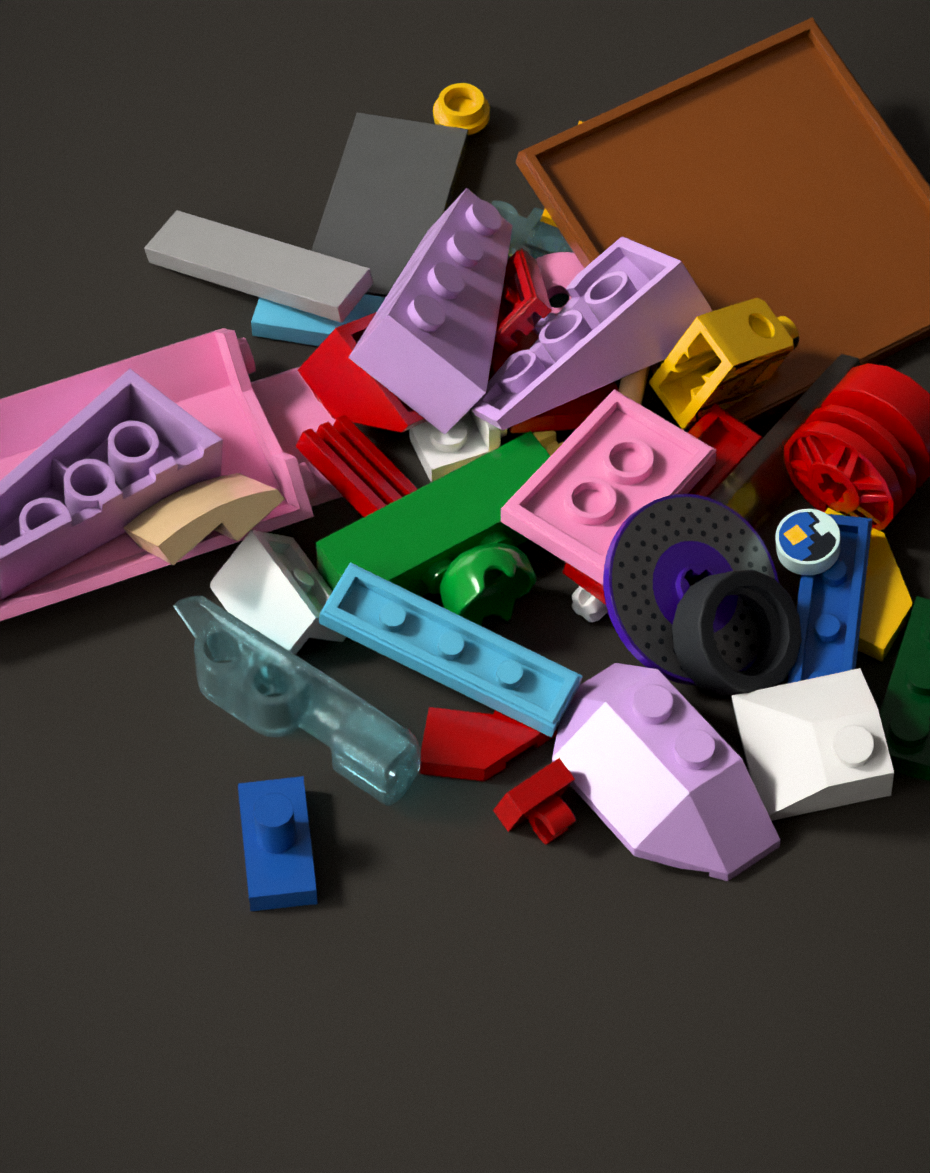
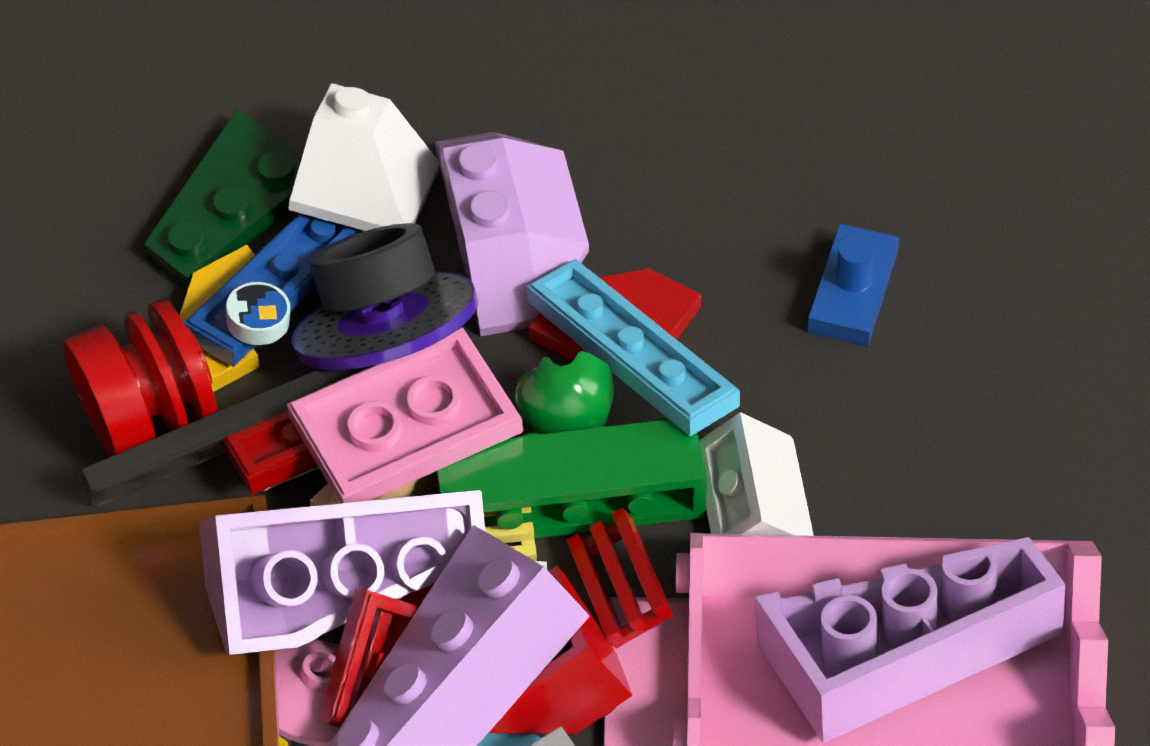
camera: 155 degrees left, 0 degrees up
(183, 519) = (800, 534): tan slope -> none
(363, 740) = (807, 390): clear light blue panel -> none
(539, 802) = (620, 222): red tile -> none
(745, 344) = (198, 479): yellow torso -> none

